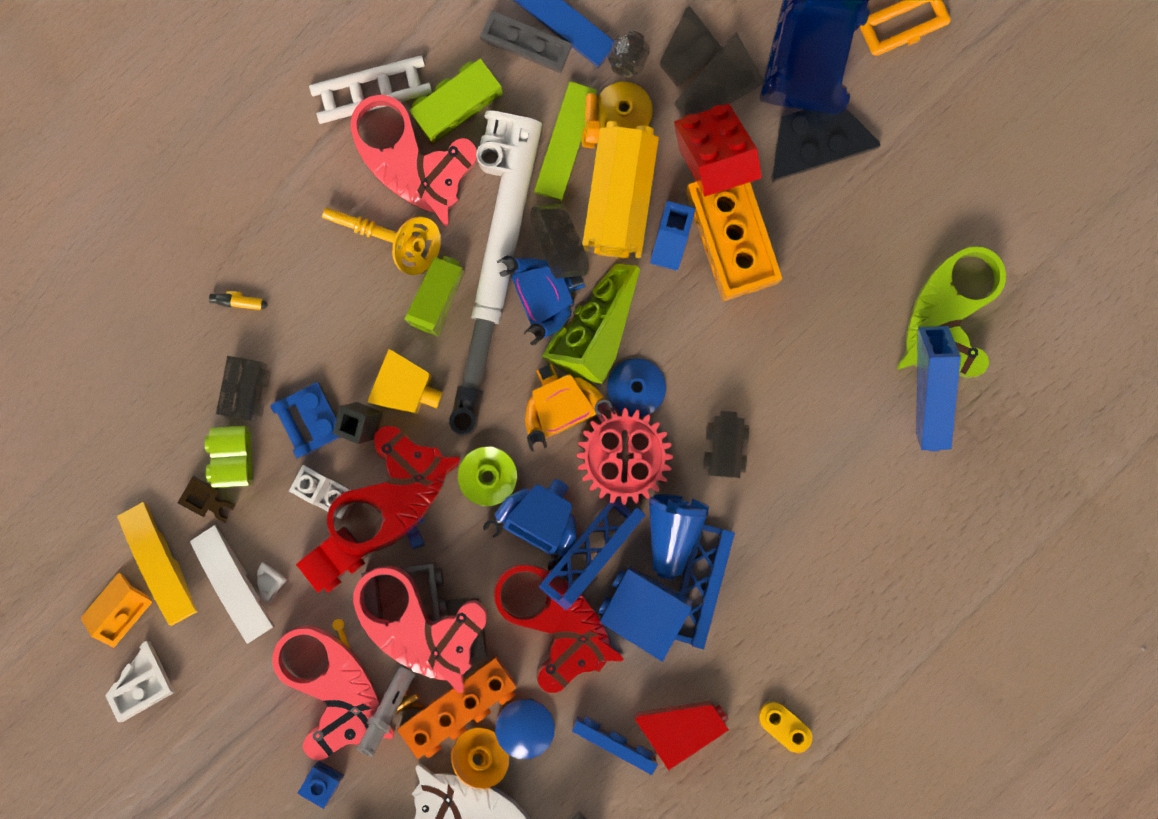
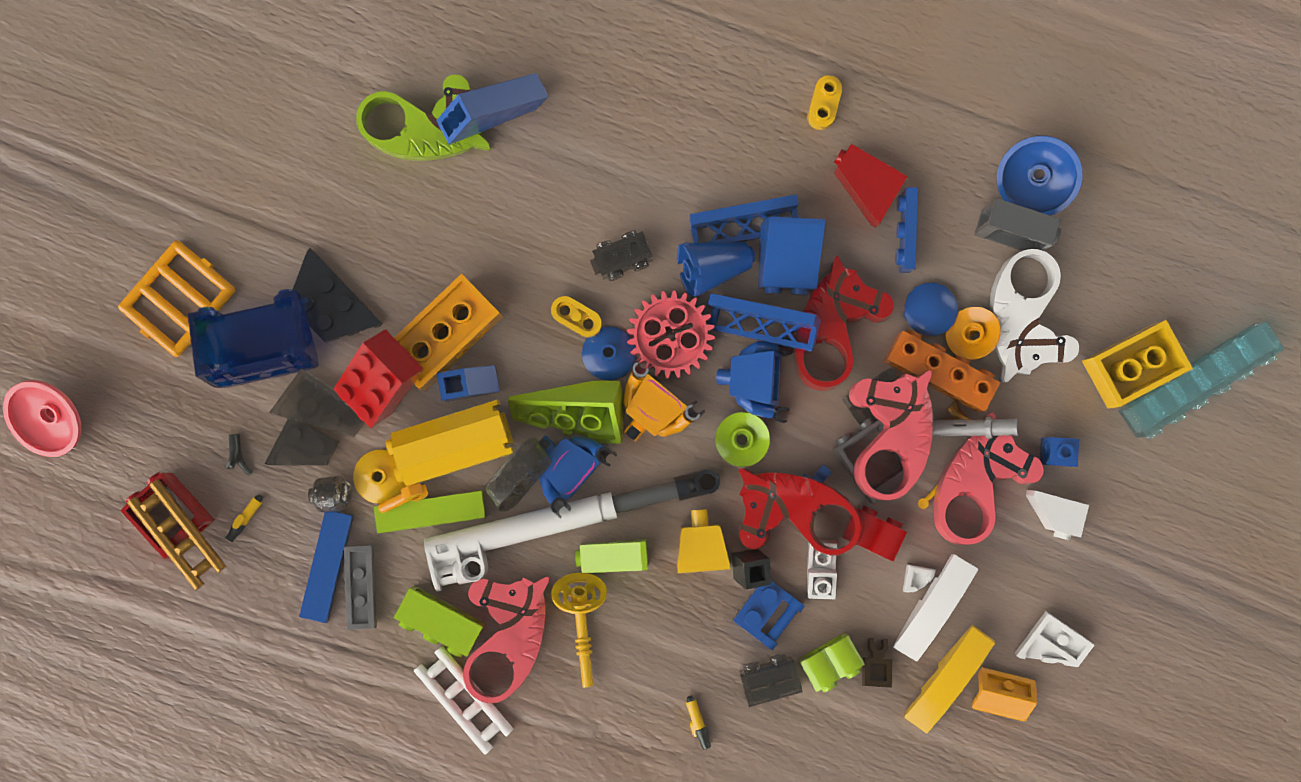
camera: 110 degrees left, 0 degrees up
(260, 753) = (1059, 514): none -> white slope
(686, 372) = (576, 317): none -> yellow plate

